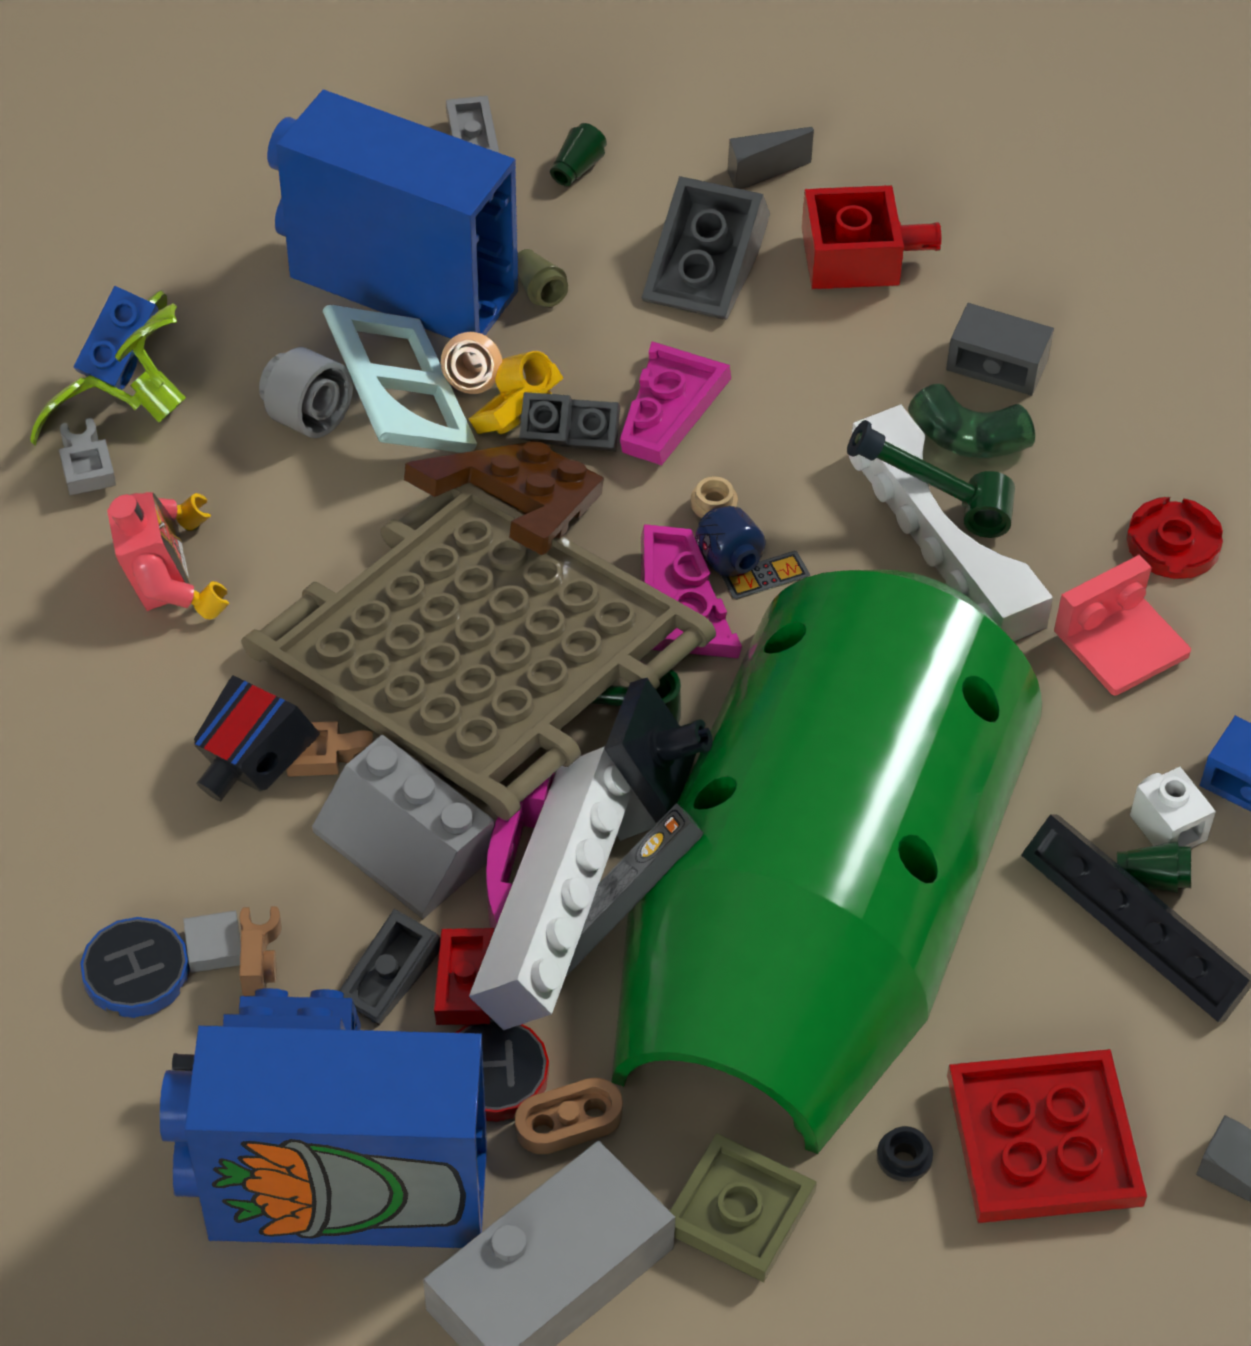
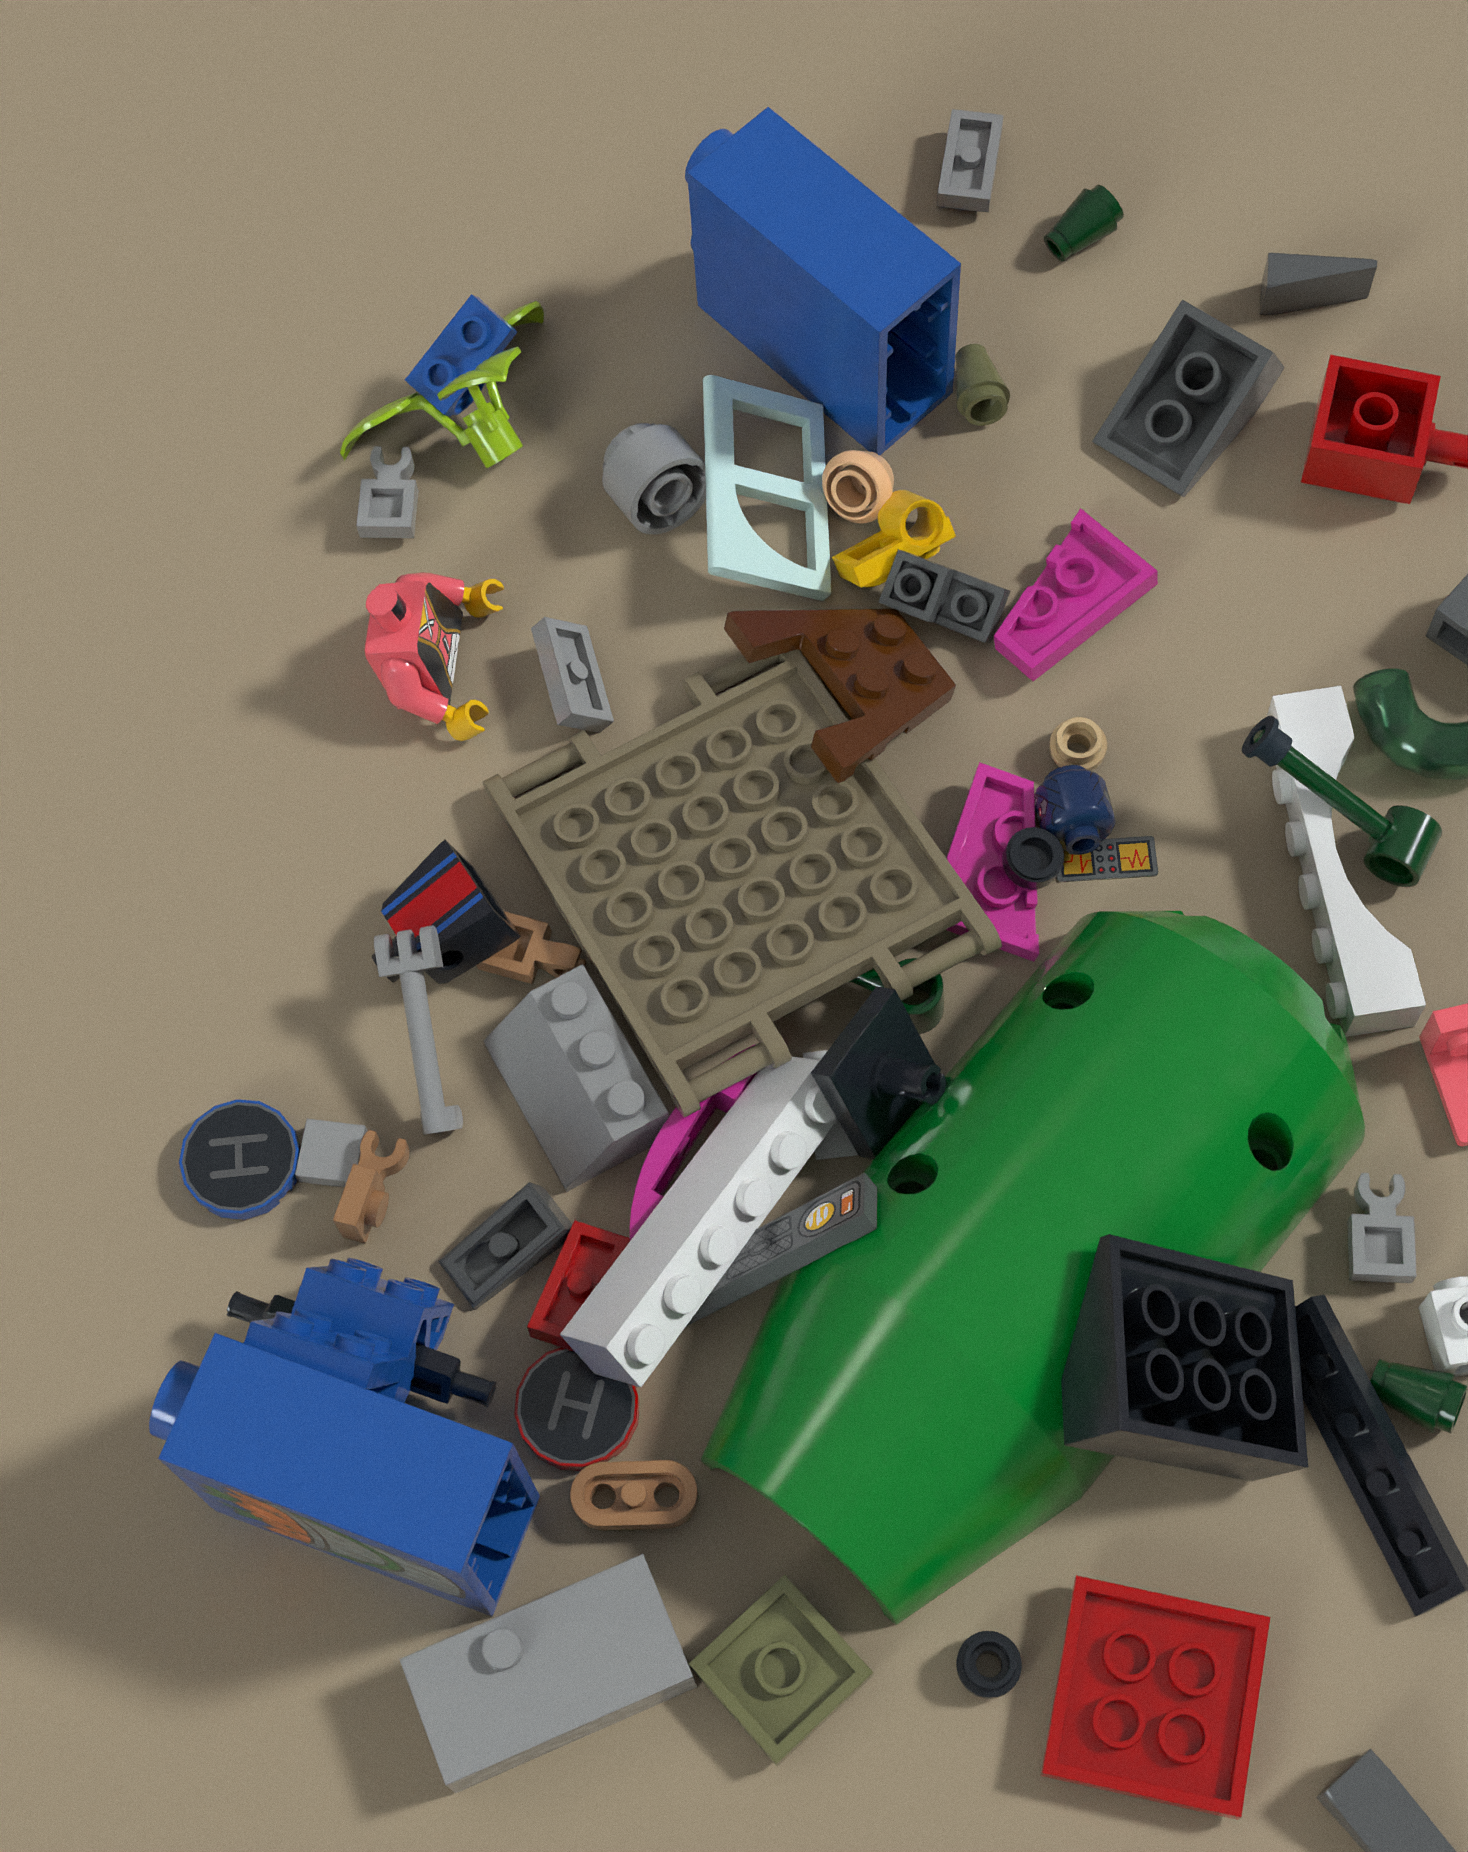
camera: 25 degrees right, 15 degrees up
(240, 769) = (410, 968): none -> light grey hinge
(288, 545) = (572, 675): none -> light grey plate
(712, 579) = (1033, 858): none -> black tile
(979, 875) = (1185, 1364): none -> black slope
(1082, 772) = (1379, 1241): none -> light grey plate

